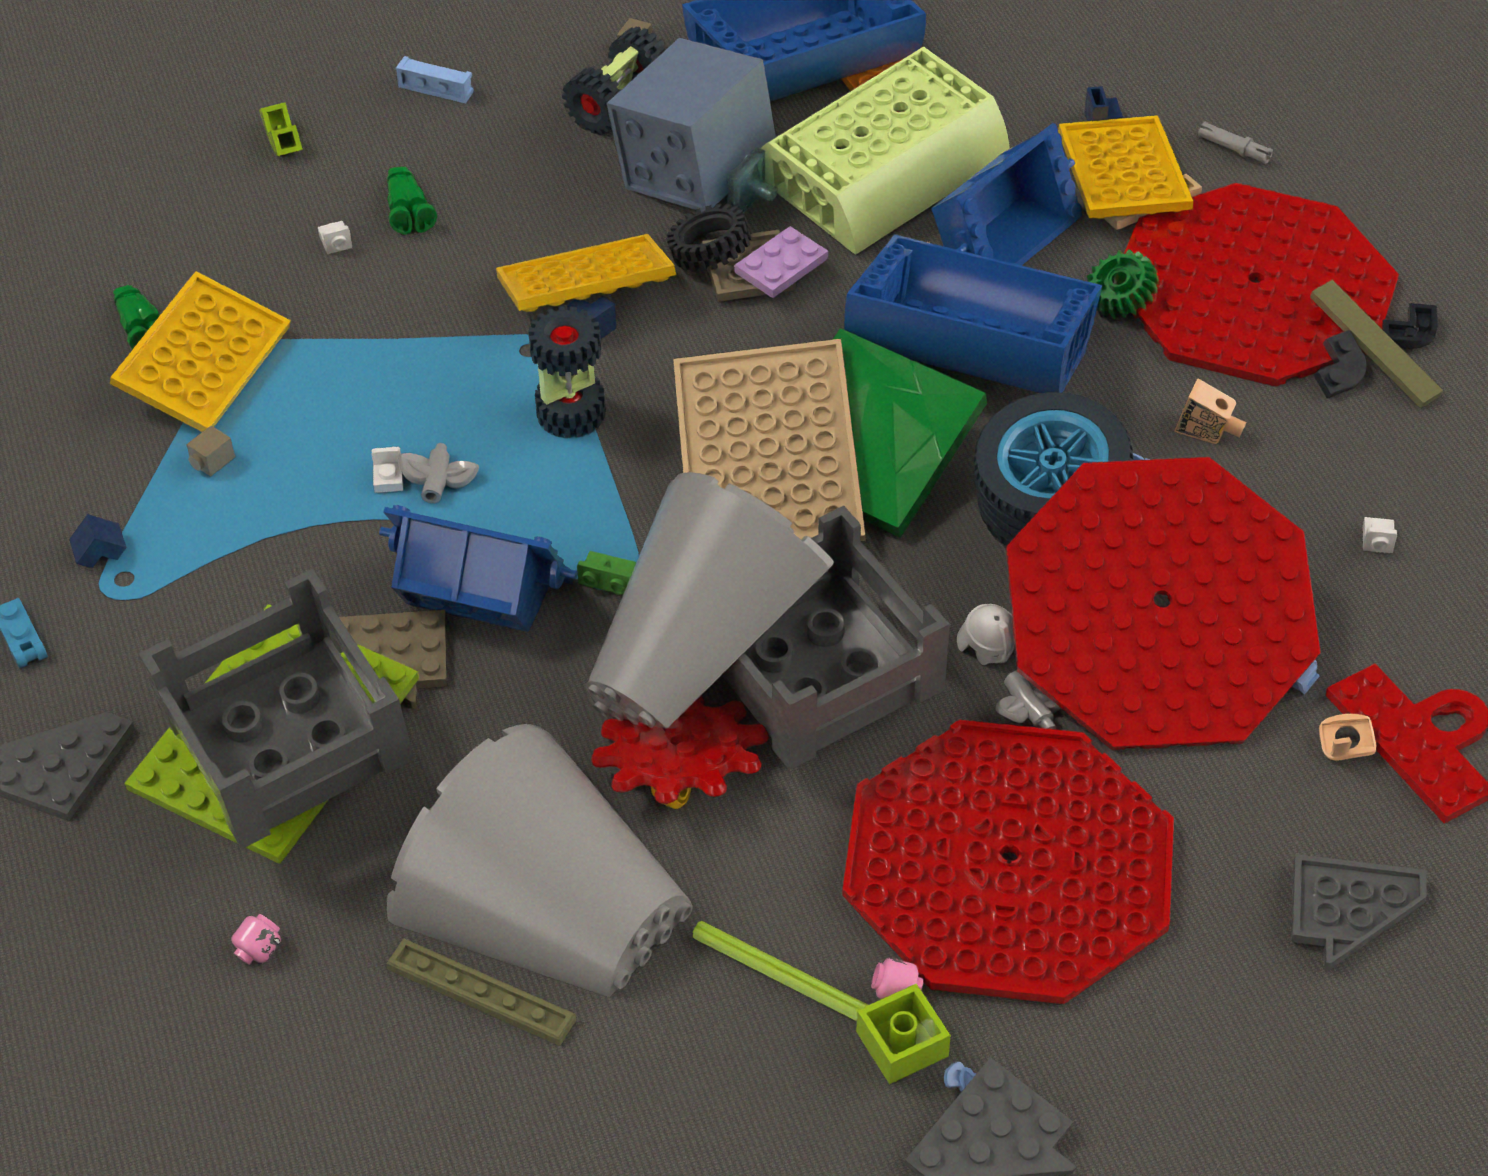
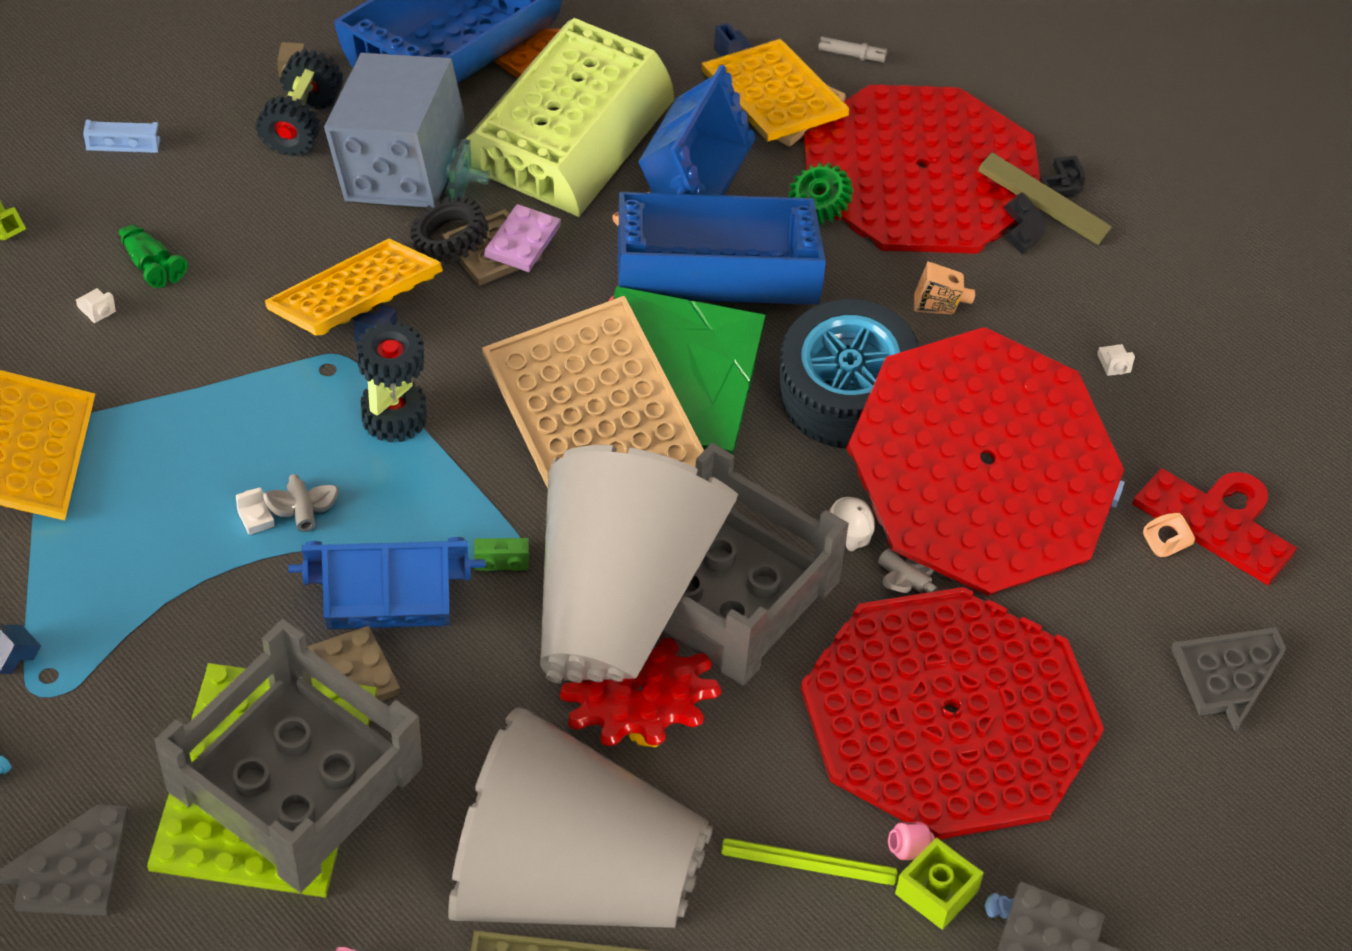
camera: 25 degrees left, 0 degrees up
(210, 451) = (78, 534): dark tan brick -> none

